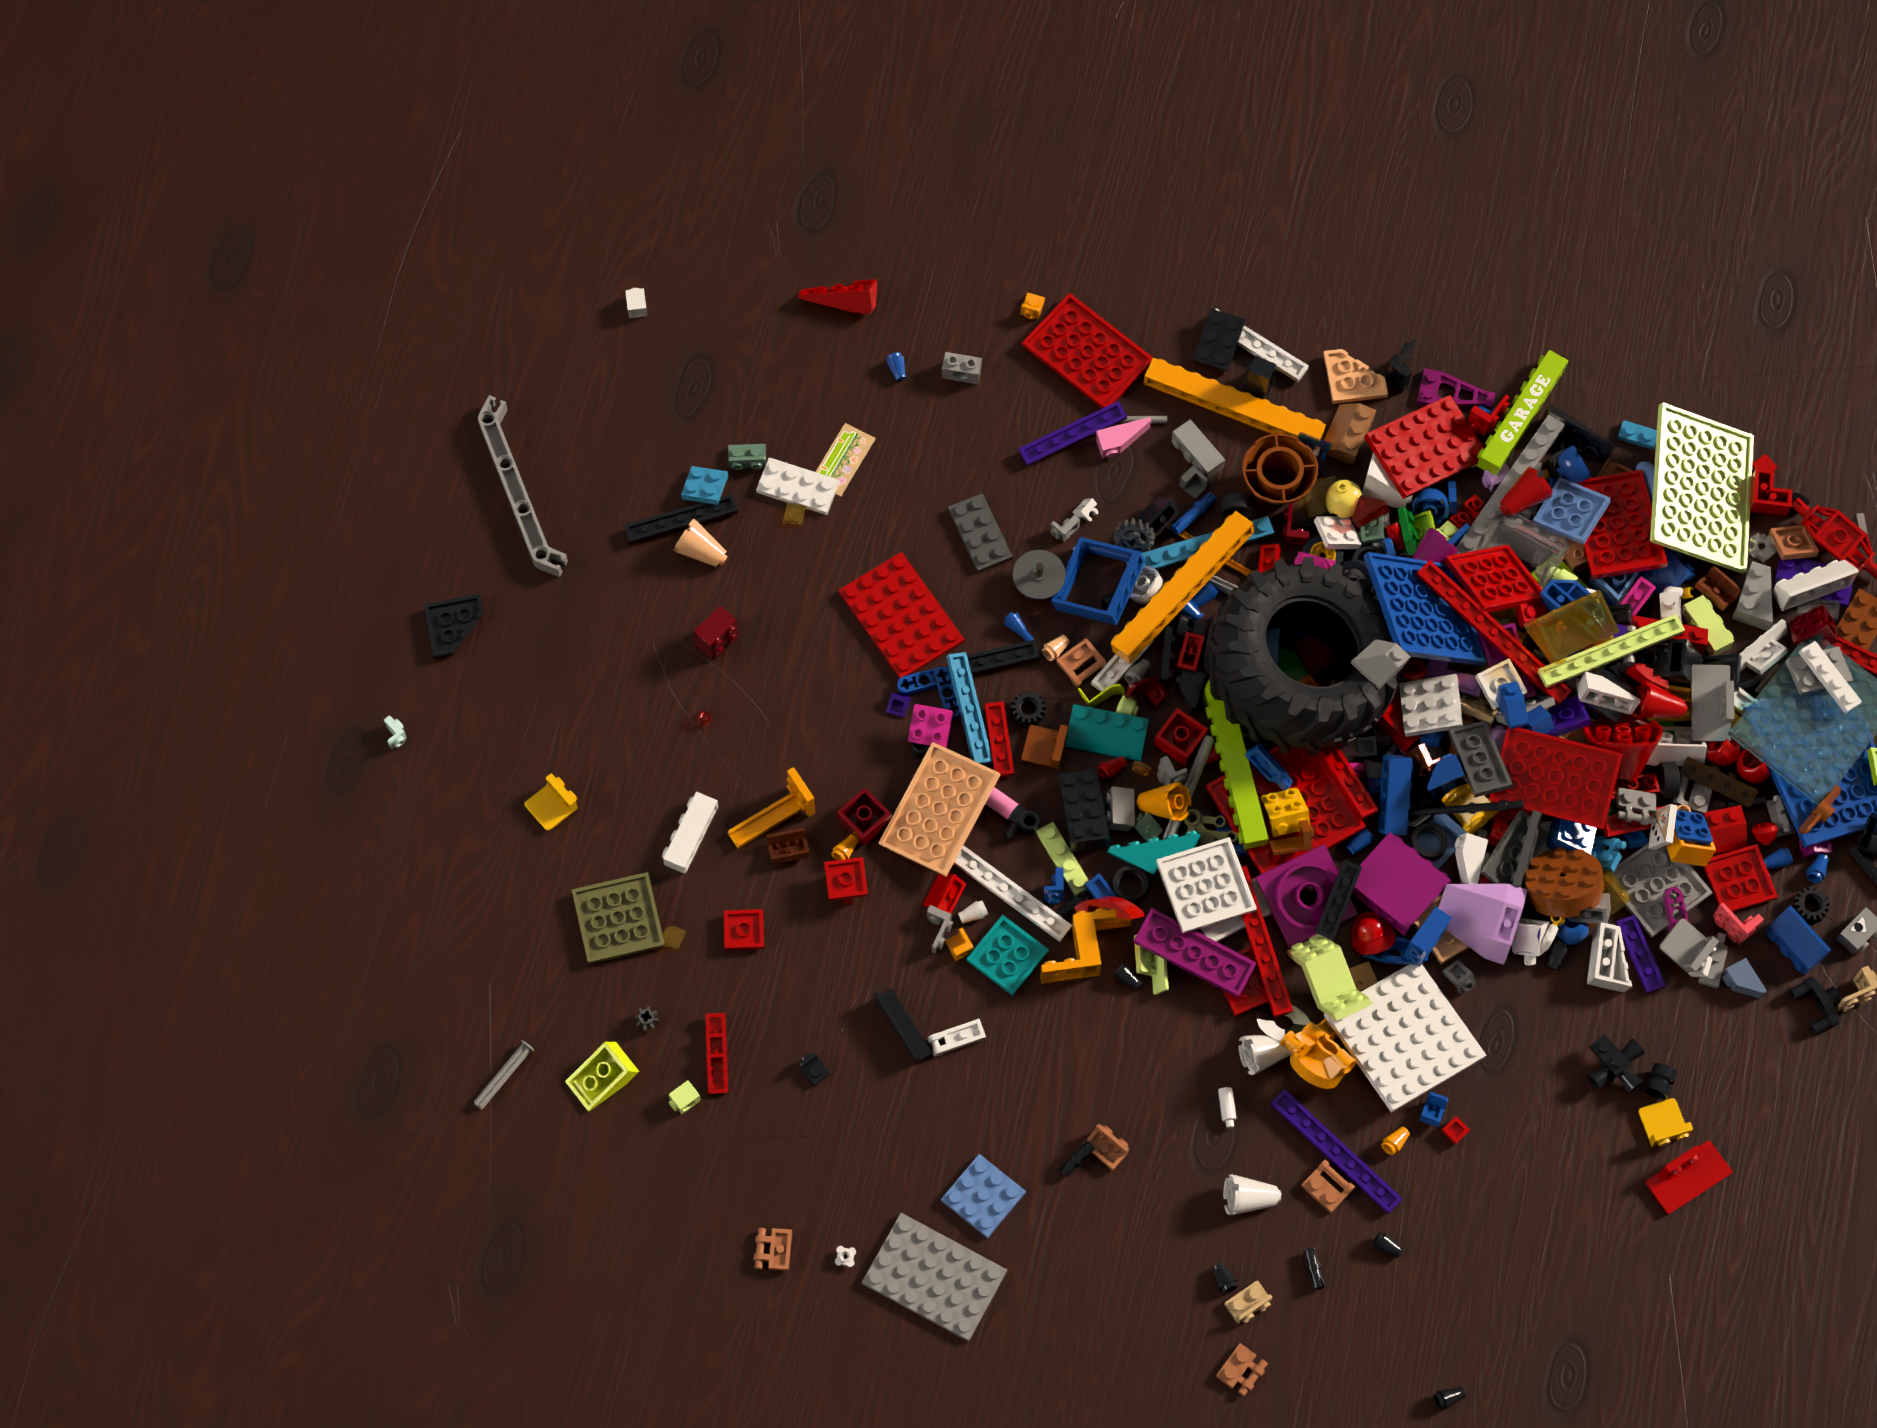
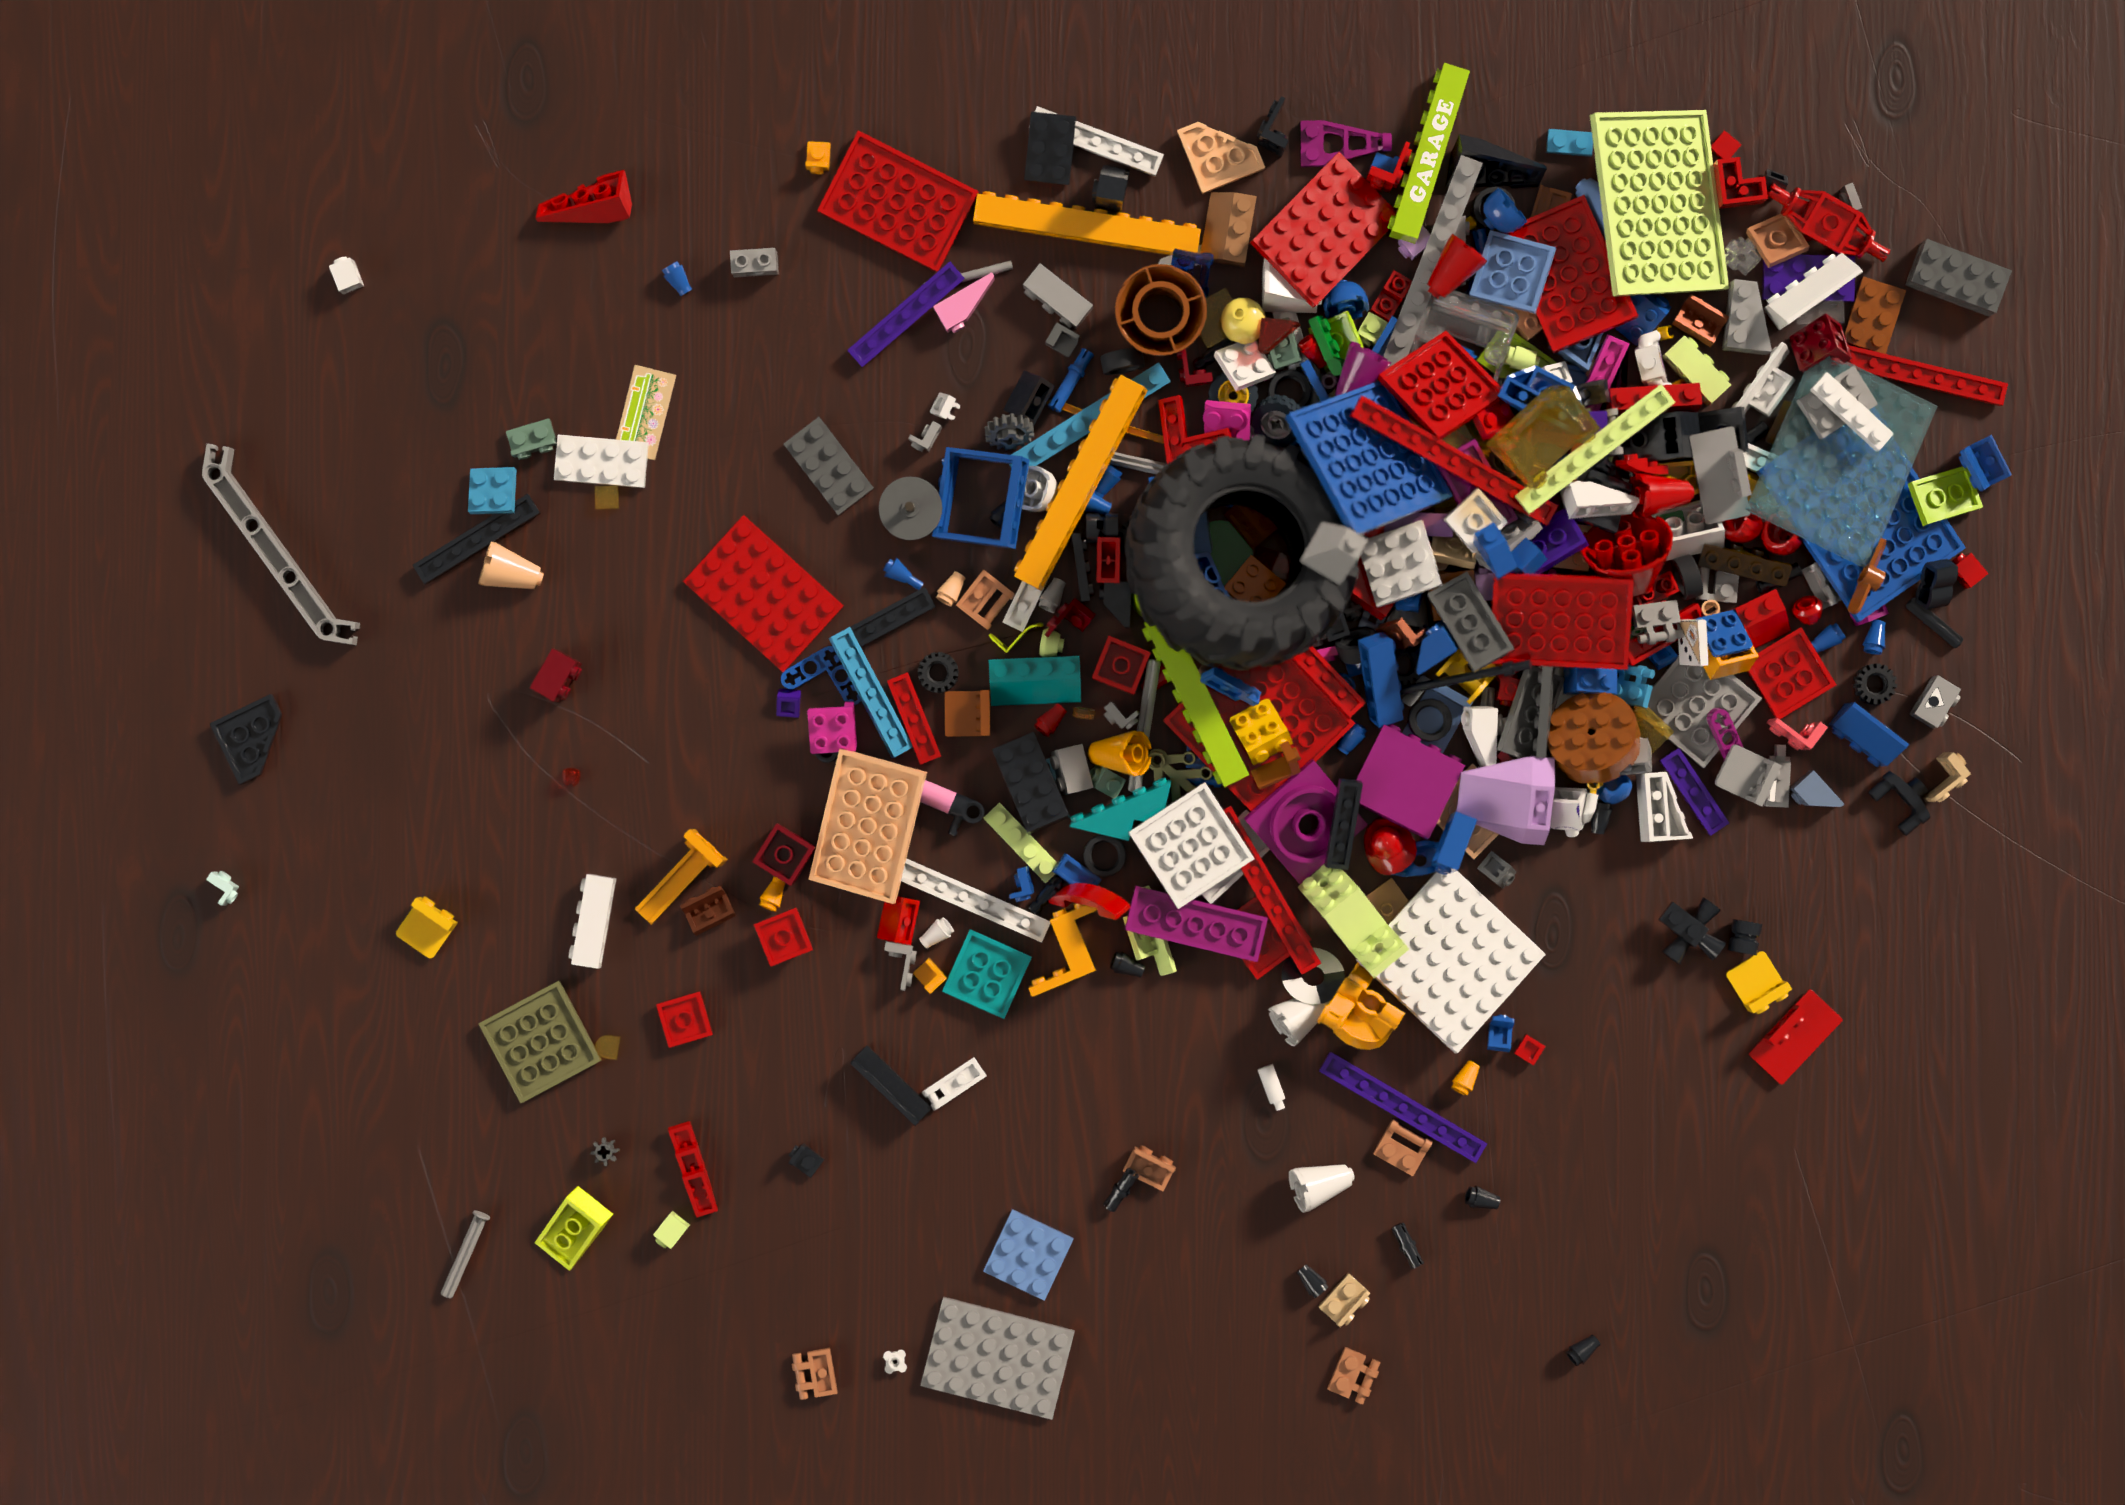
camera: 10 degrees left, 20 degrees up
(1452, 500) = (1368, 285): blue plate -> none

